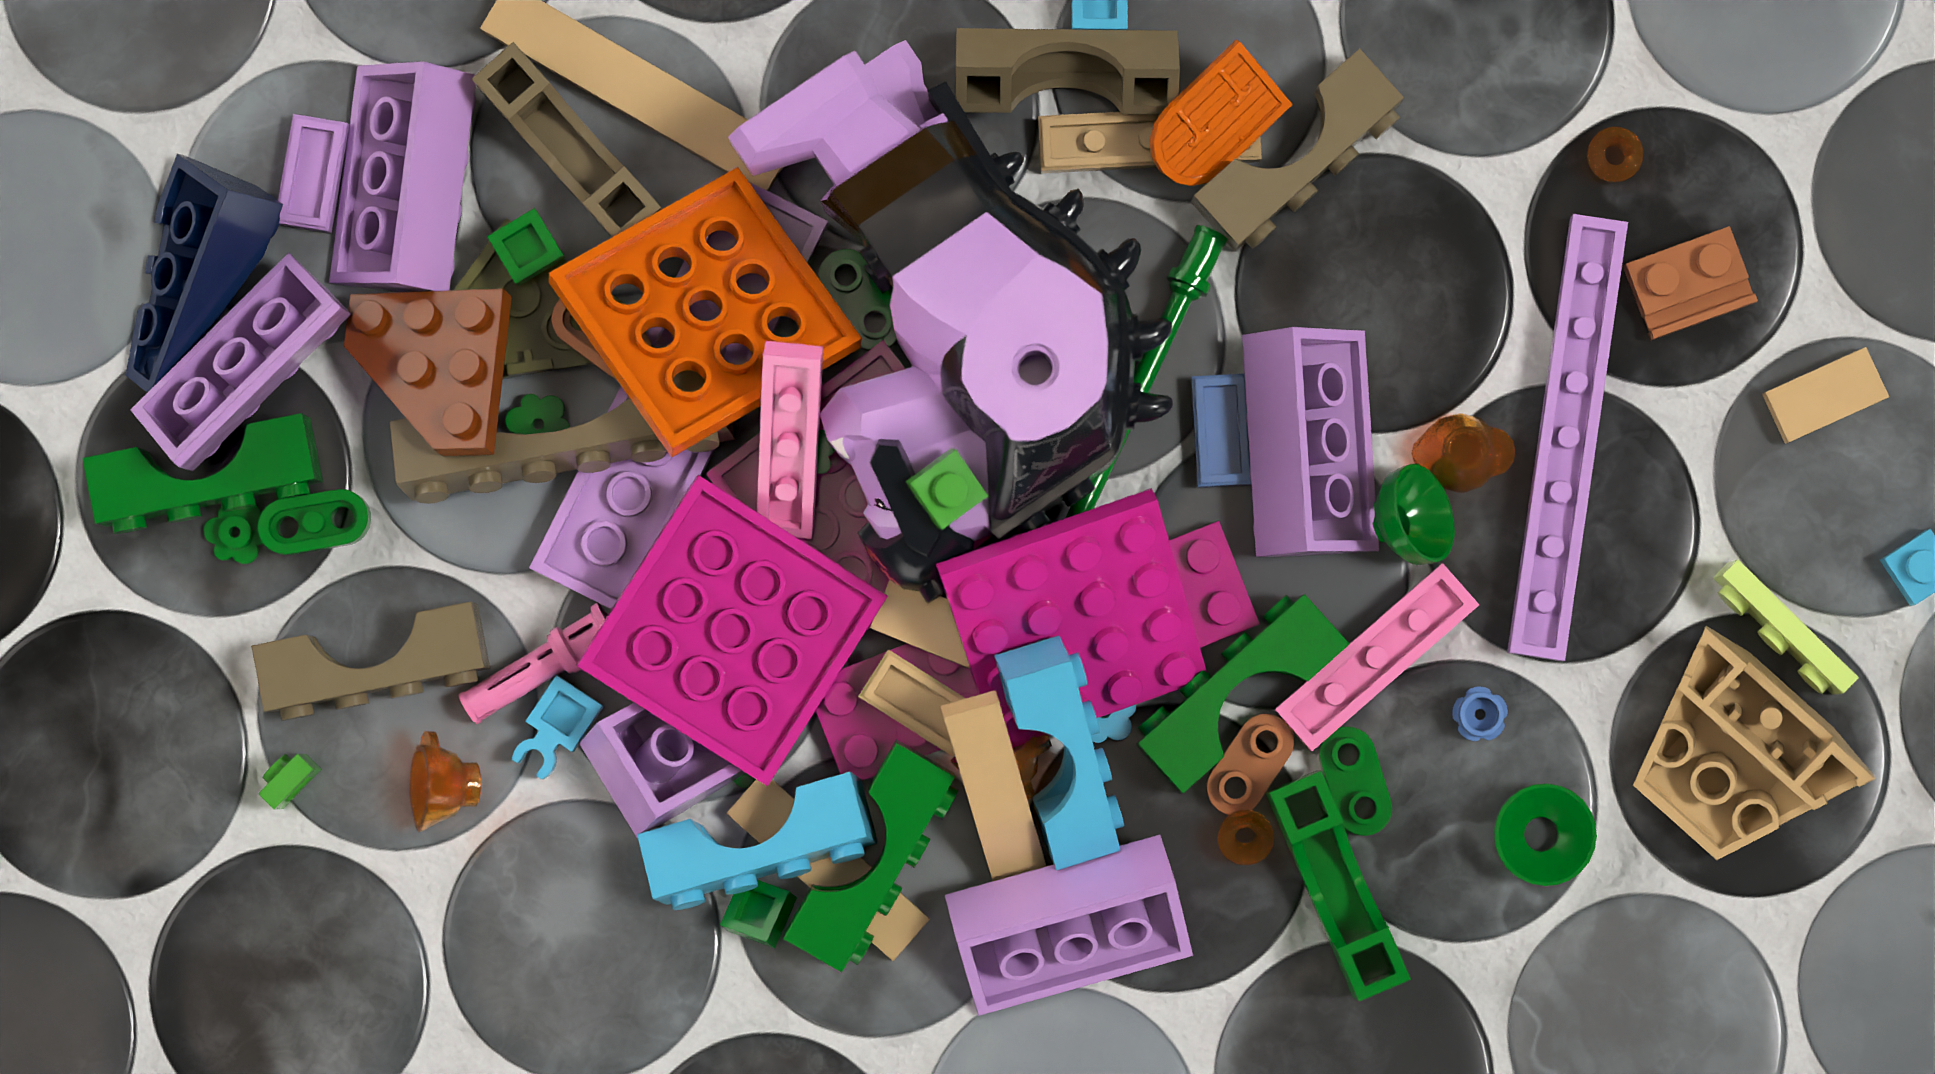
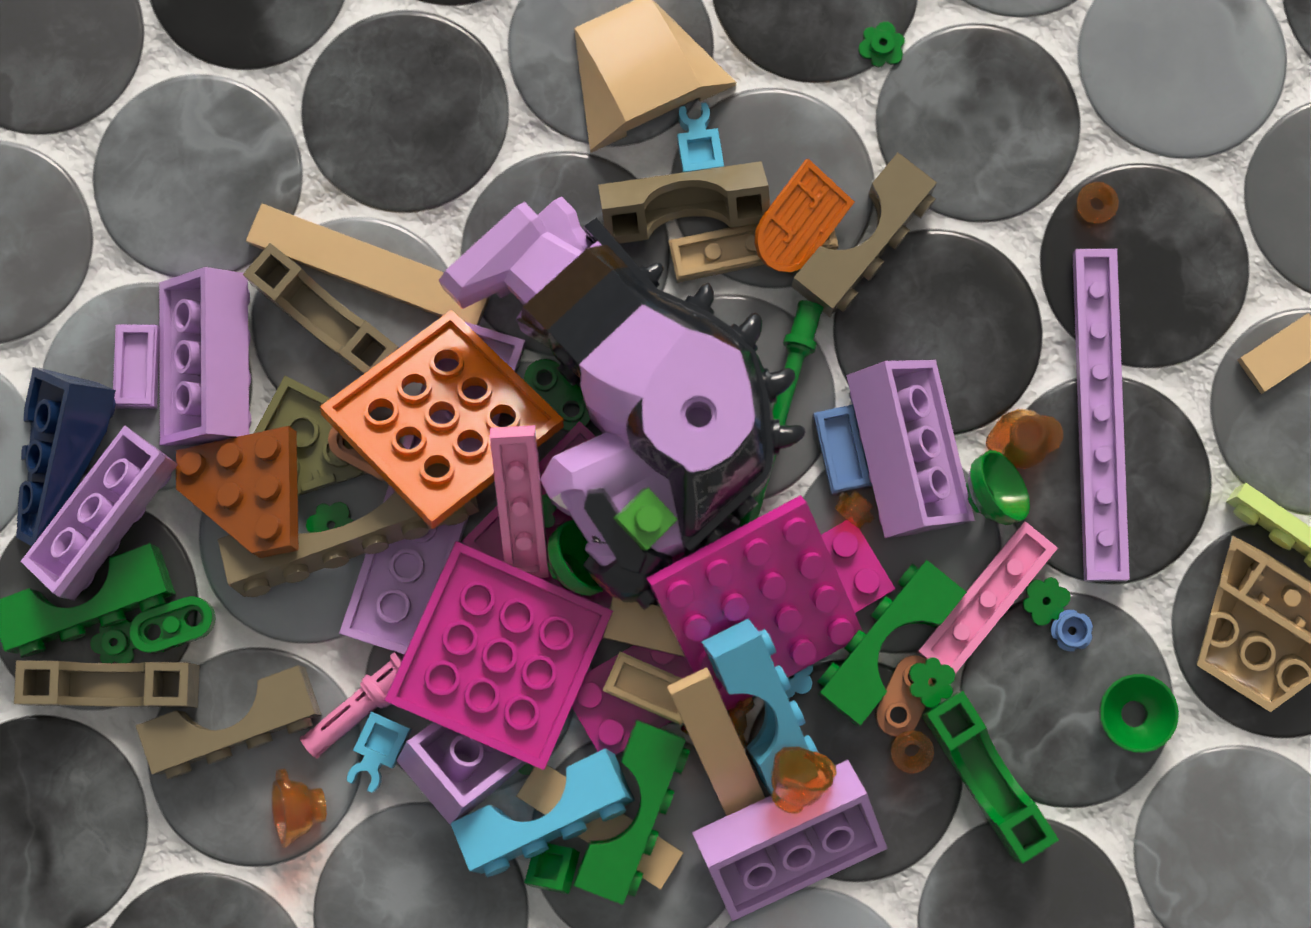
camera: 10 degrees left, 5 degrees down
(221, 586) = (107, 684): none -> dark tan arch
(287, 779) = (178, 823): bright green plate -> none
(526, 247) = (301, 393): green plate -> none
(845, 502) = (569, 545): none -> green piece
(1093, 848) = (800, 778): none -> clear orange piece
(1224, 511) = (855, 508): none -> clear orange plate
(1298, 746) = (941, 678): none -> green plant
(1355, 781) = (988, 695): green plate -> none
(1467, 669) = (1056, 599): none -> green plant
(1690, 283) = (1169, 287): nougat plate -> none

